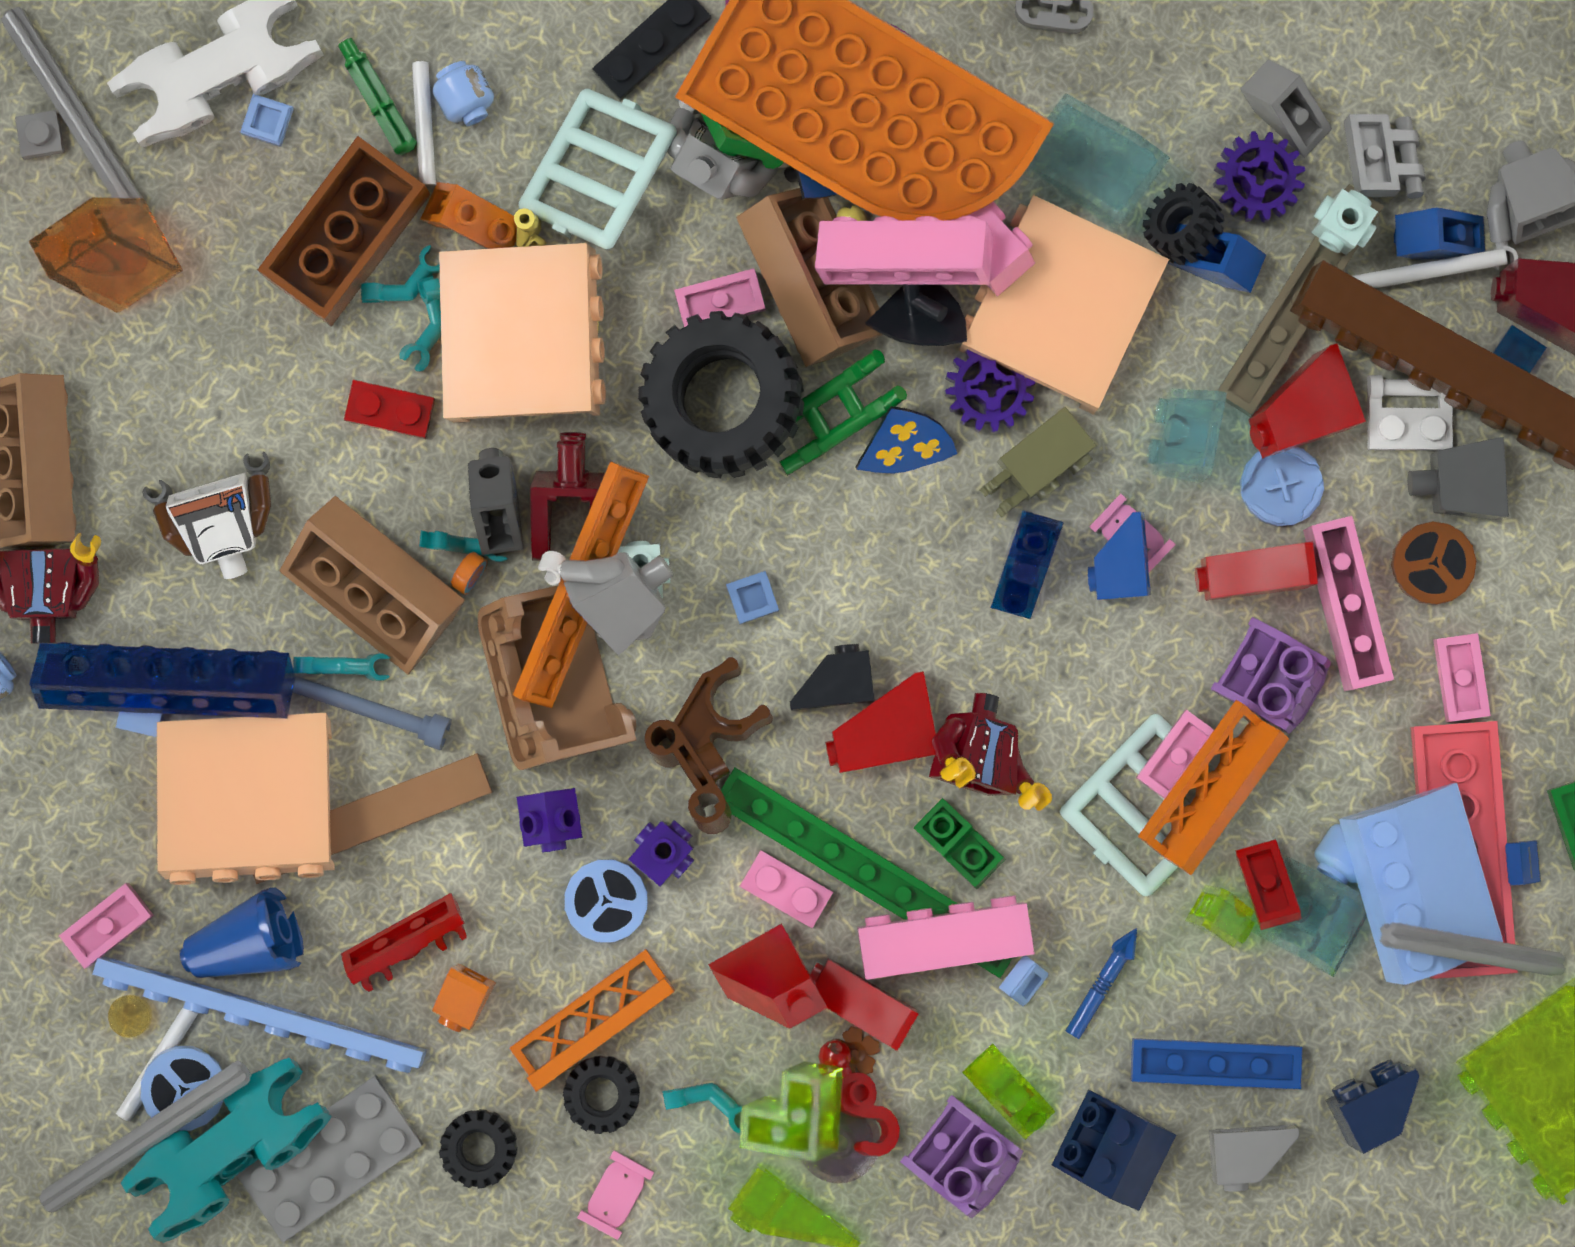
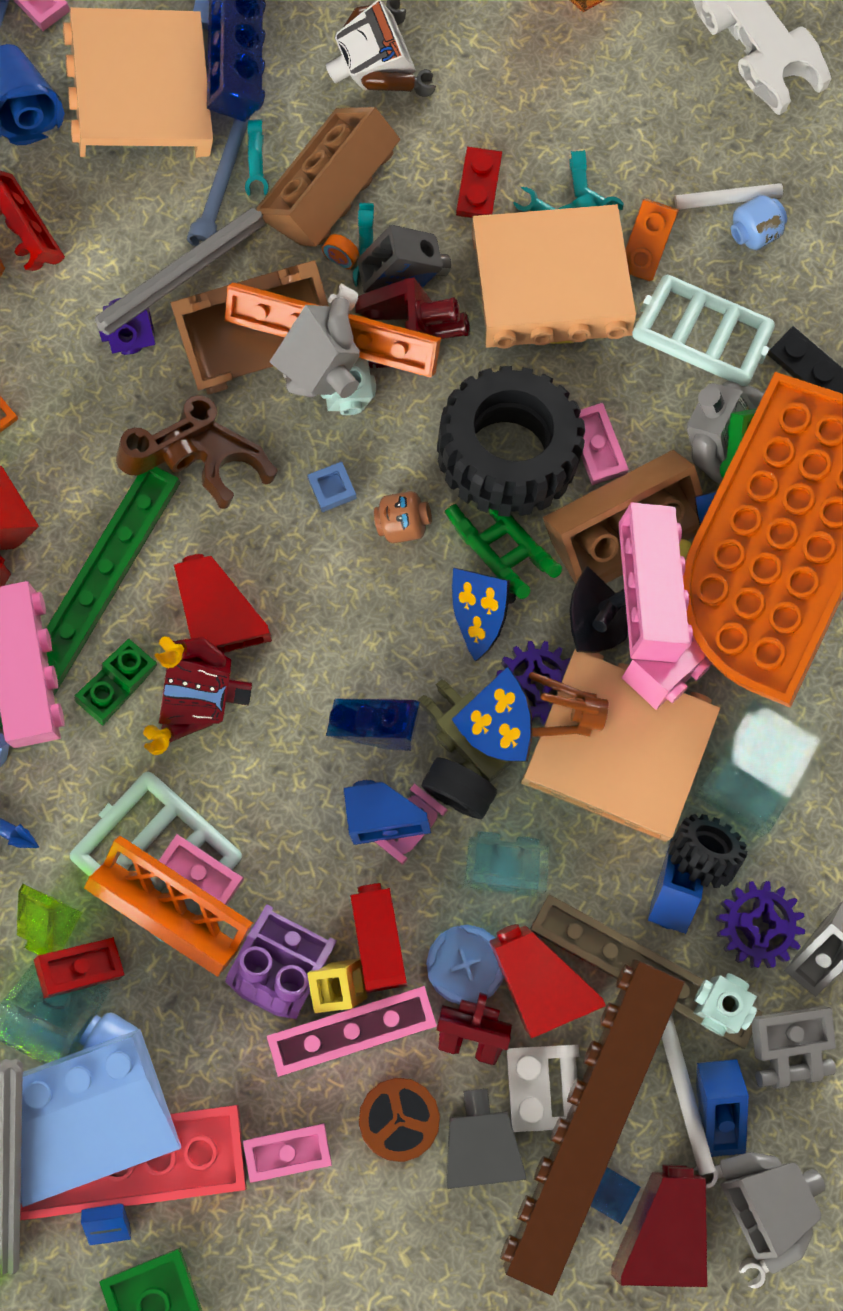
camera: 90 degrees right, 10 degrees down
(267, 120) = (717, 75): light blue tile -> none
(344, 231) = (628, 131): dark orange brick -> none
(377, 98) = (746, 157): green piece -> none
(407, 803) = (135, 206): medium nougat tile -> none
(492, 754) = (179, 271): none -> light grey axle
(528, 229) = (648, 279): light yellow arm -> none
(606, 900) = (59, 381): light blue tile -> none
(646, 855) = (99, 419): dark purple brick -> none
(786, 889) = (71, 532): bright pink plate -> none
(794, 521) = (402, 517): none -> nougat head
(837, 680) = (259, 562): black slope -> none
(1036, 335) = (586, 709): none -> dark orange plant
(1042, 428) = (499, 720): none -> blue shield
(1103, 478) = (459, 788): none -> black tyre
(1302, 616) = (337, 986): none -> light yellow brick
(1346, 480) = (476, 1024): none -> dark red hips

